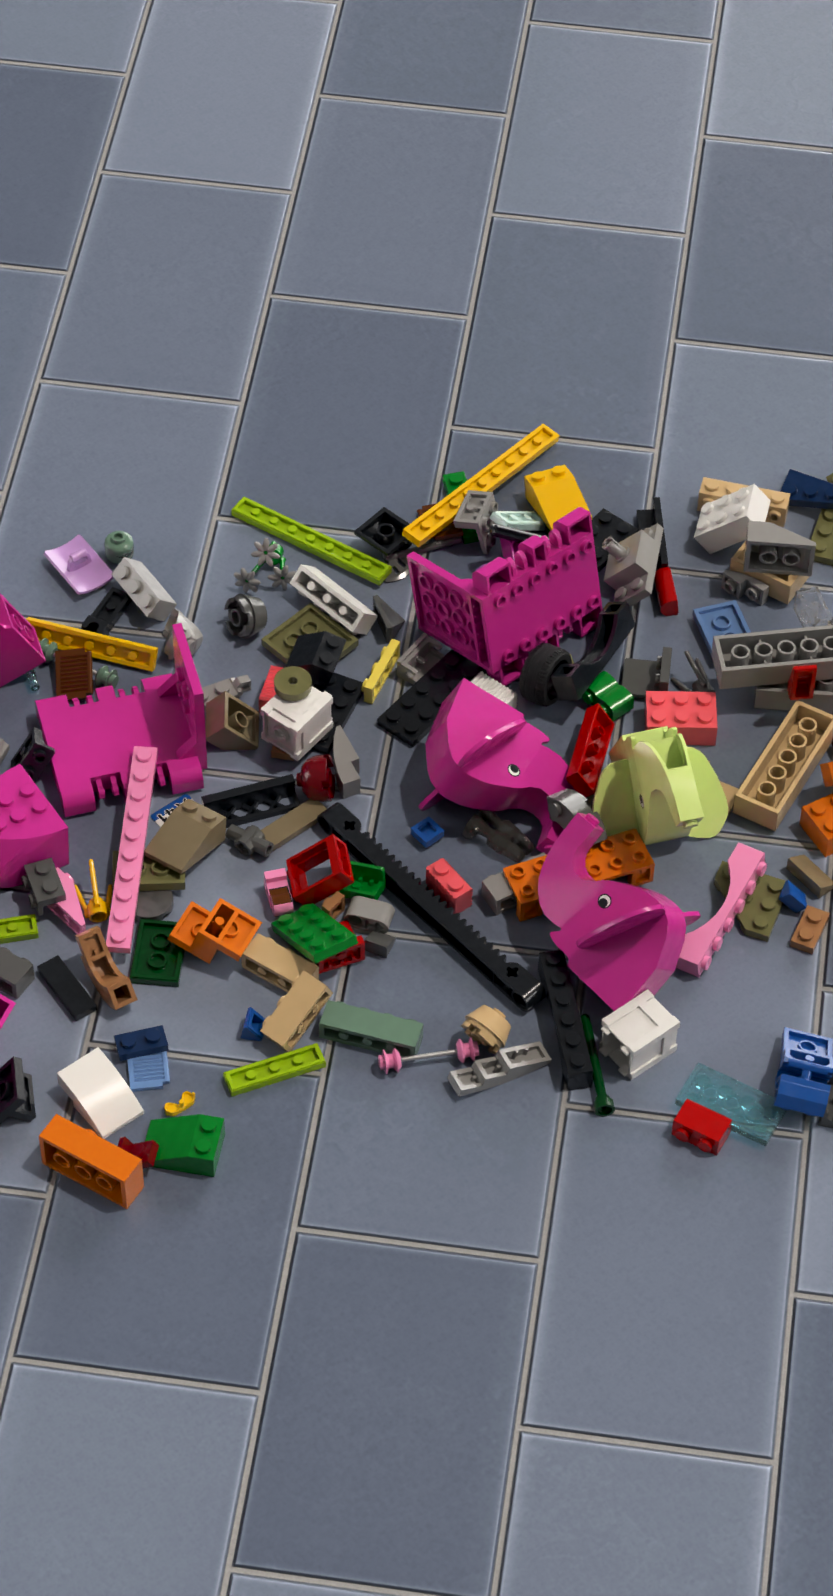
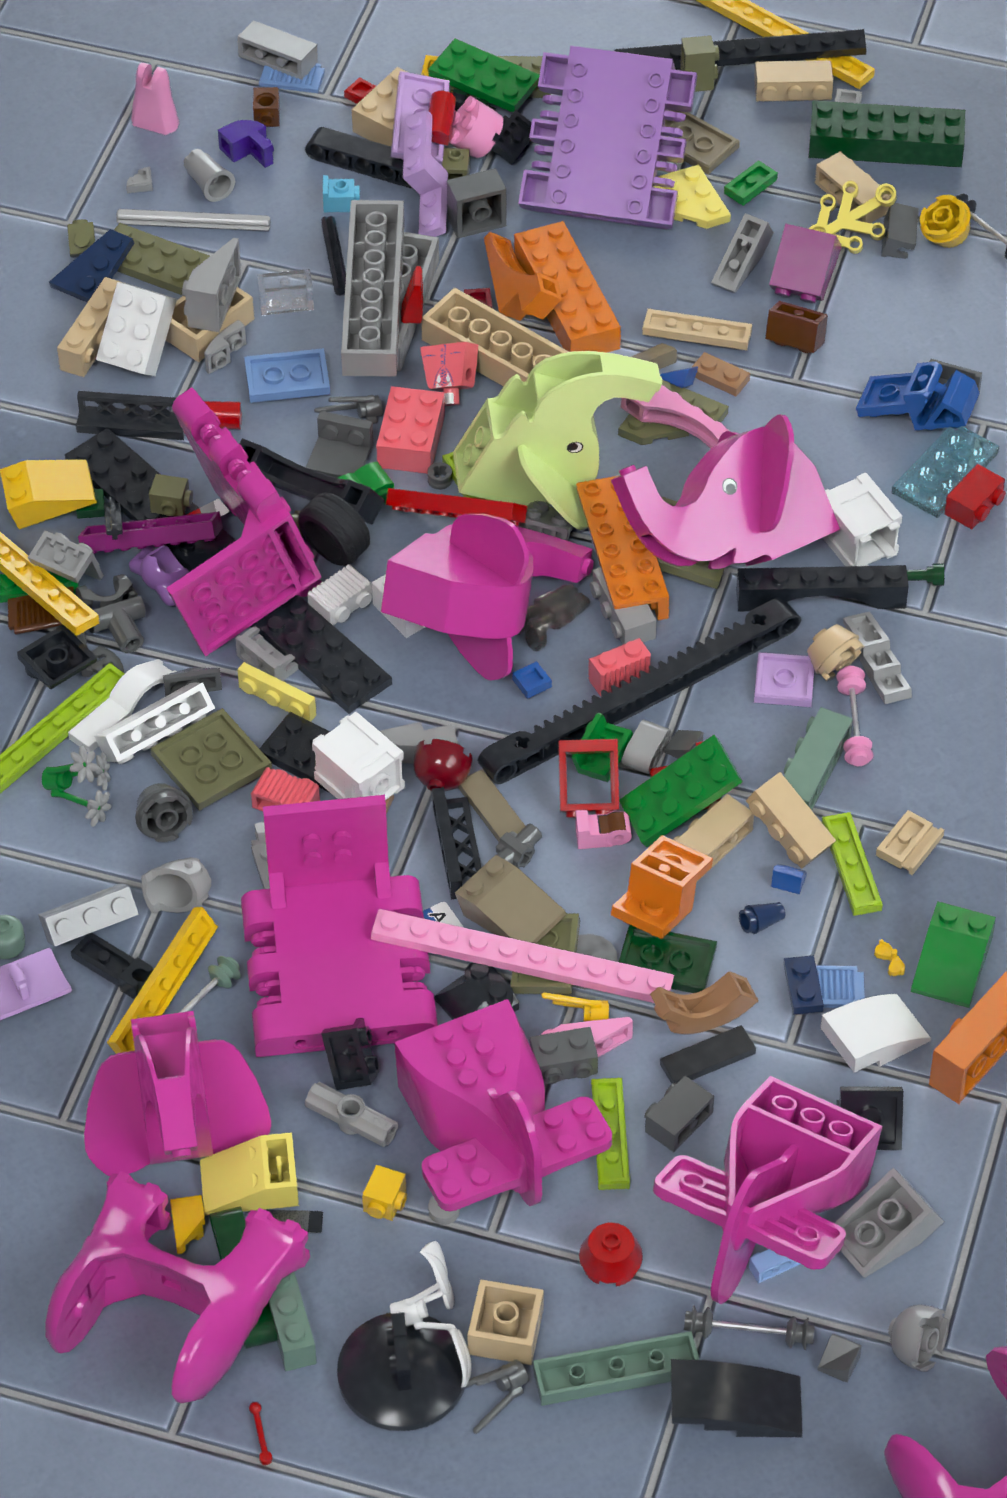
camera: 80 degrees left, 0 degrees up
(74, 673) = (213, 1005): reddish brown window -> none
(100, 836) = (474, 991): none -> black slope
(144, 1150) = (965, 996): dark red bracket -> none
(205, 1007) = (760, 916): none -> dark blue cone
(289, 691) = (330, 734): olive piece -> none
(298, 1106) = (909, 842): none -> tan plate
(318, 655) = (259, 739): black slope -> none
(334, 905) = (630, 776): medium nougat plate -> none
(366, 580) = (120, 703): none -> white piece
(445, 558) = (118, 612): none -> dark grey connector
(459, 1001) = (784, 680): none -> lavender tile
(519, 520) = (76, 526): light aqua tile -> none
(566, 804) = (567, 521): dark grey brick -> none
(633, 564) = (157, 432): light grey brick -> none
(749, 730) = (450, 368): none -> coral torso

